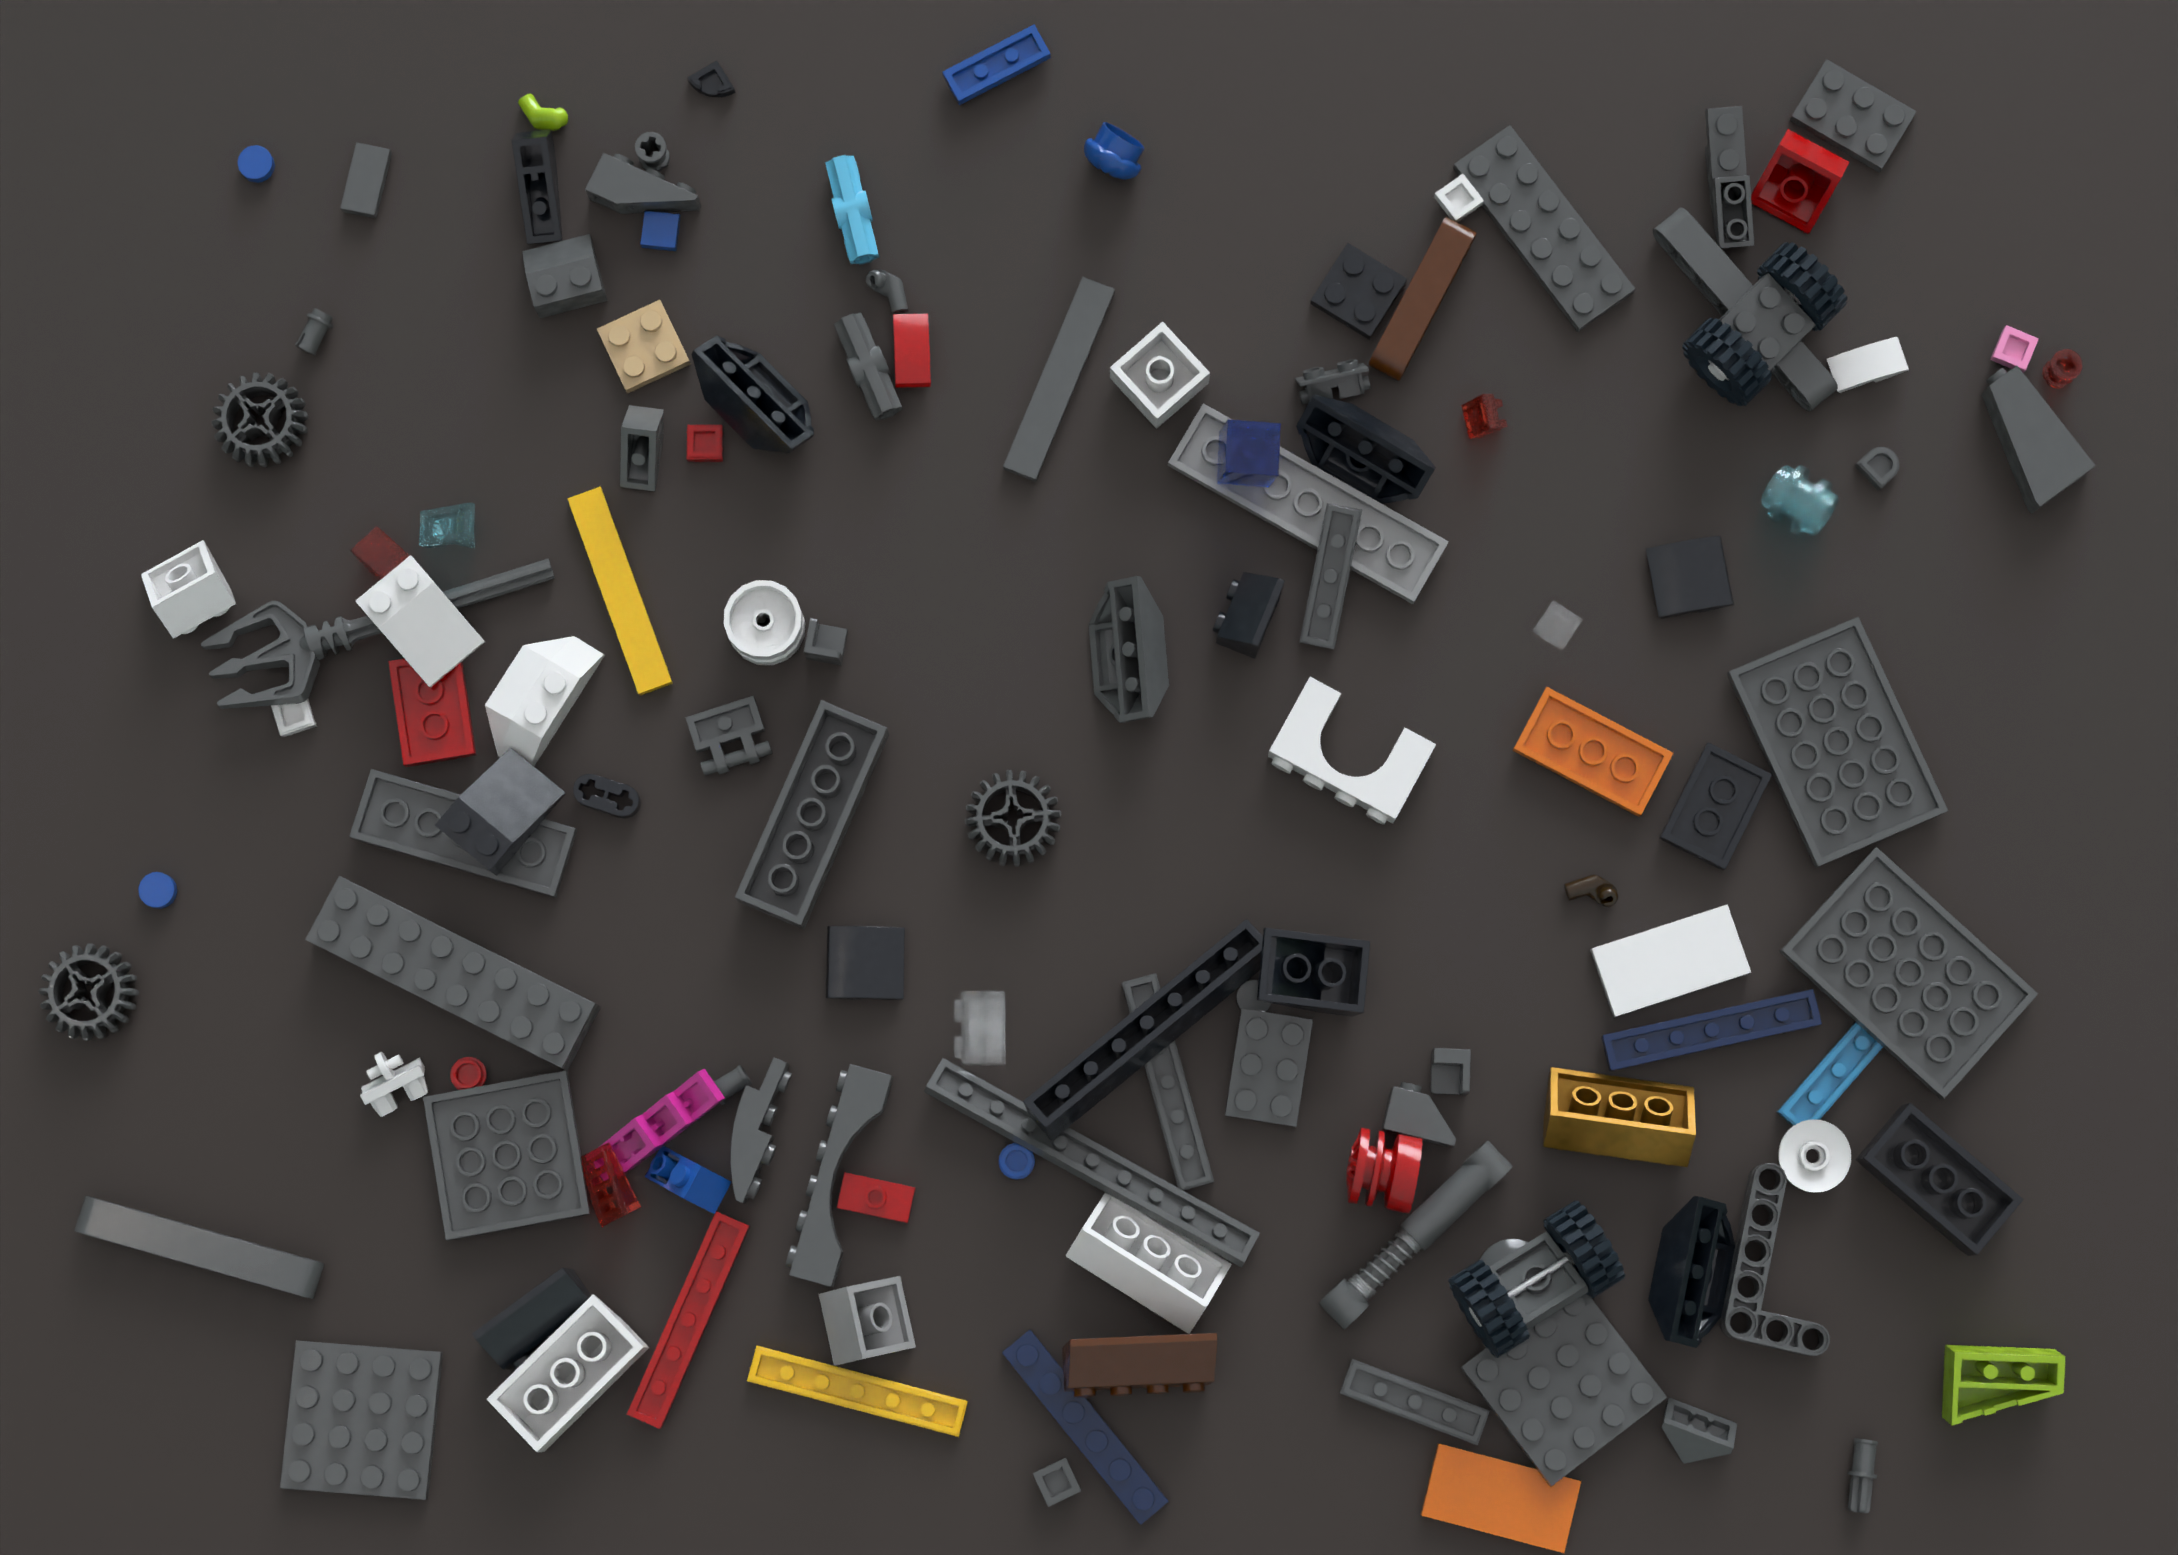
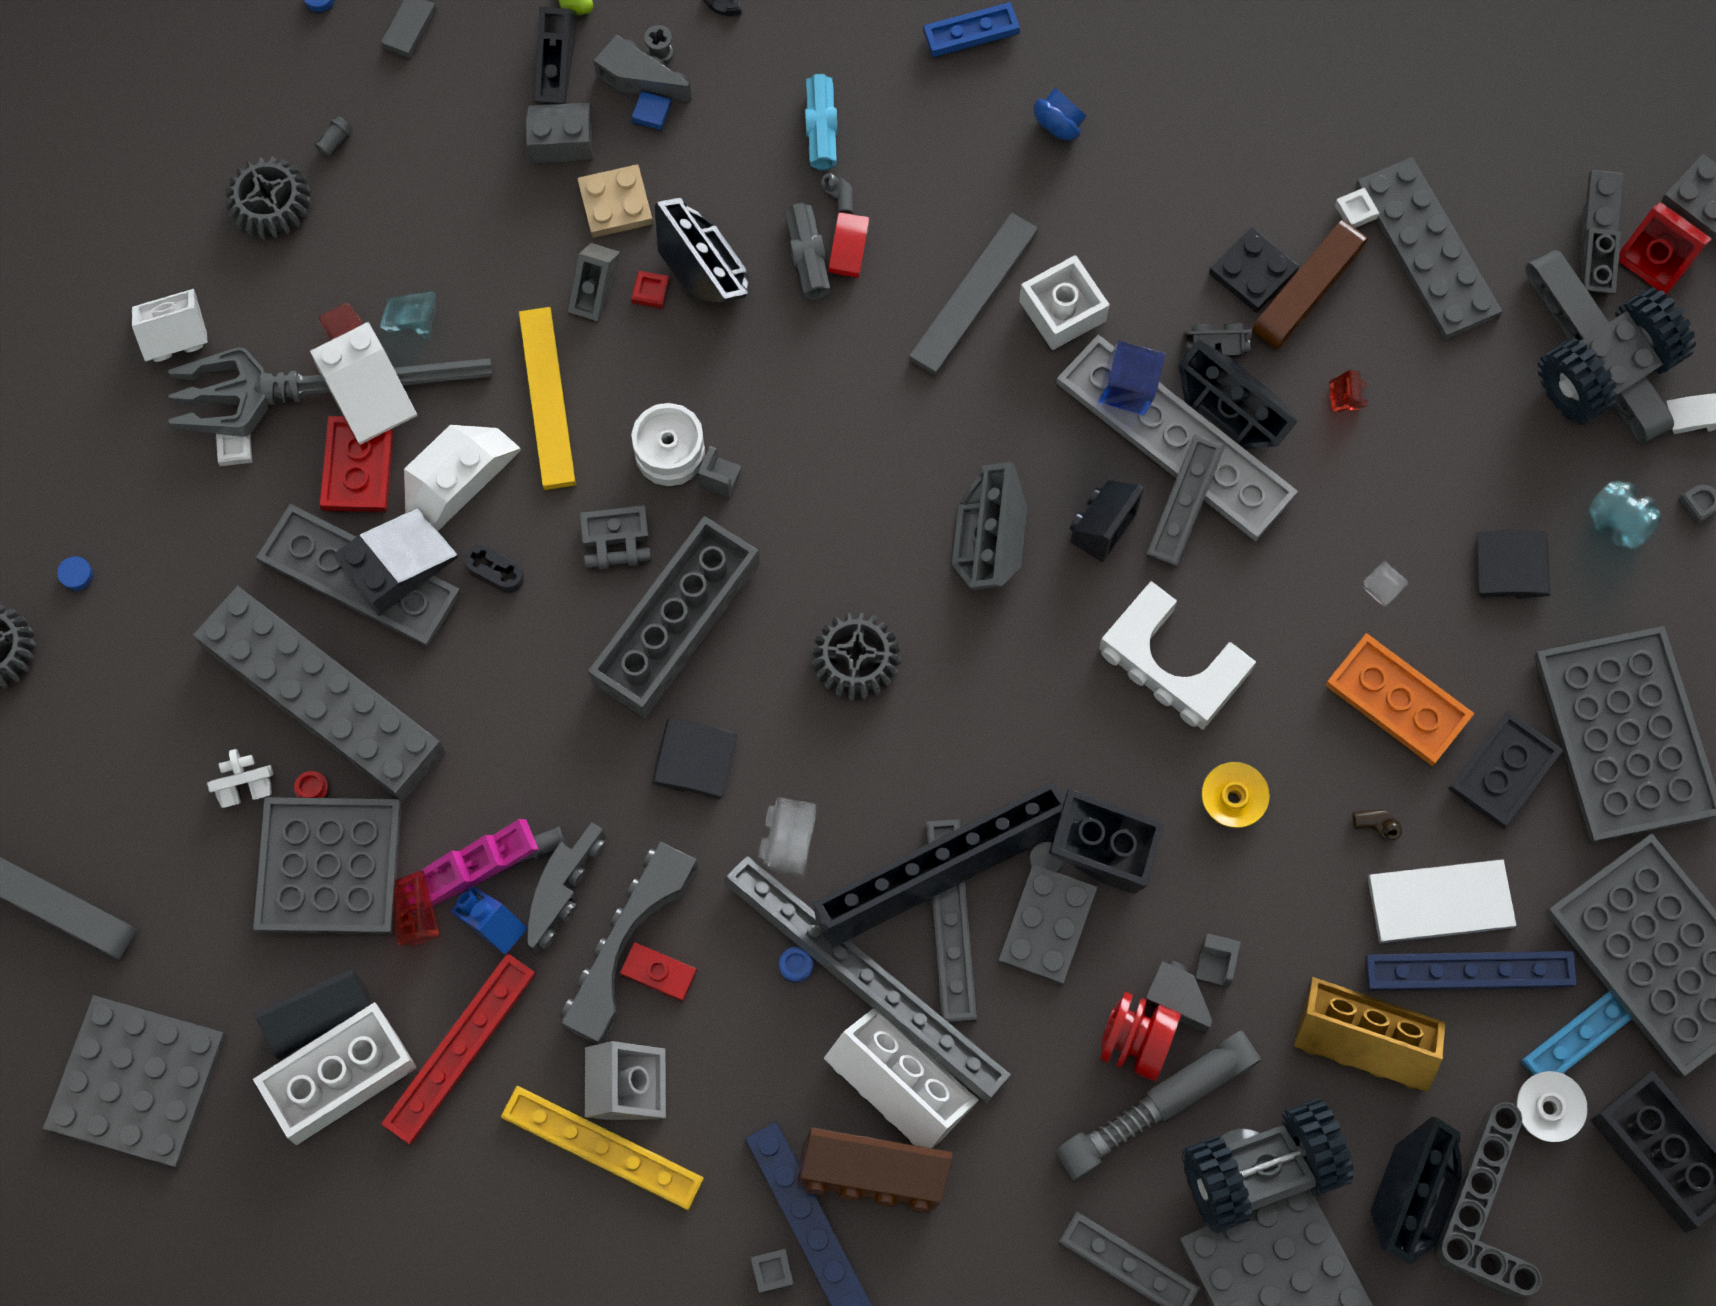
camera: 10 degrees right, 10 degrees down
(1452, 878) = (1237, 779): none -> yellow dish

